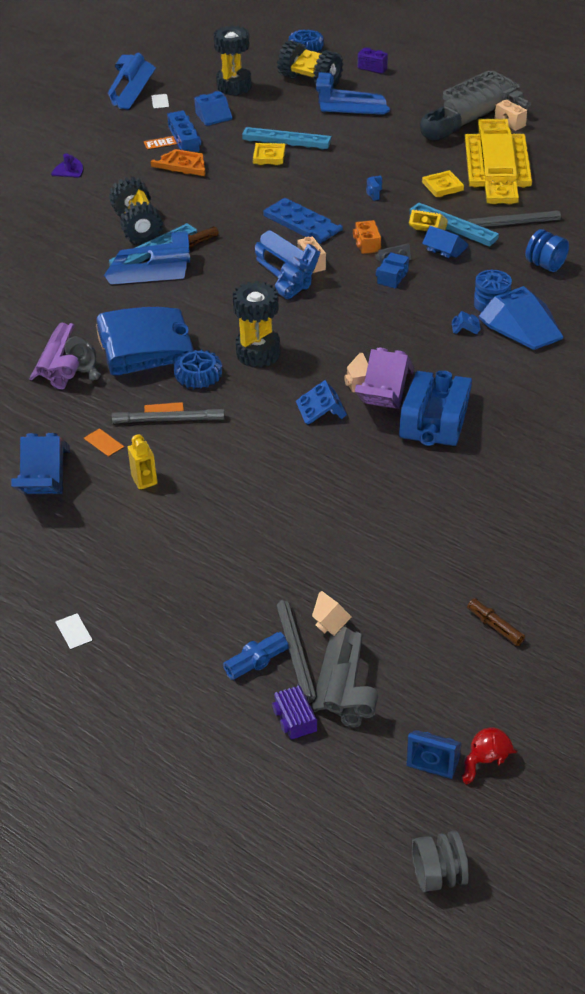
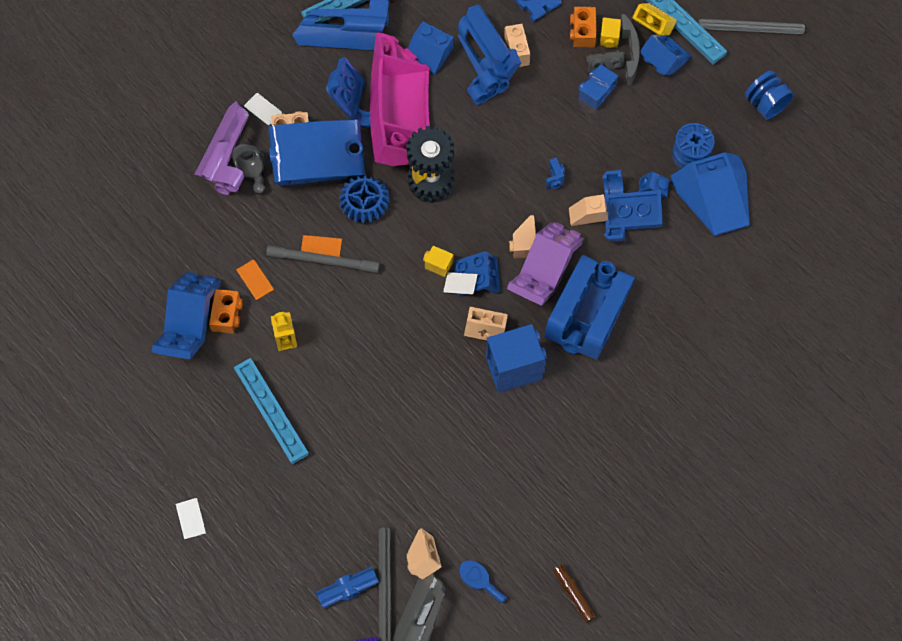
camera: 10 degrees right, 25 degrees up
(79, 464) = (222, 311): none -> orange brick
(85, 328) = (262, 108): none -> white sticker
(142, 531) = (271, 411): none -> dark azure plate
(164, 294) = (345, 89): none -> blue piece
(210, 300) = (396, 99): none -> dark pink slope
(232, 266) = (431, 46): none -> blue slope
(281, 399) = (438, 261): none -> yellow brick
(306, 410) = (460, 283): none -> white sticker
(332, 427) = (484, 323): none -> light nougat brick
(373, 328) = (557, 172): none -> blue bracket
(377, 445) = (515, 358): none -> blue container
(391, 236) = (610, 32): none -> yellow brick
(392, 626) = (477, 578): none -> blue piece
(409, 235) = (629, 32): none -> dark grey slope
(415, 343) = (588, 210): none -> light nougat slope
(449, 342) = (629, 210): none -> blue piece

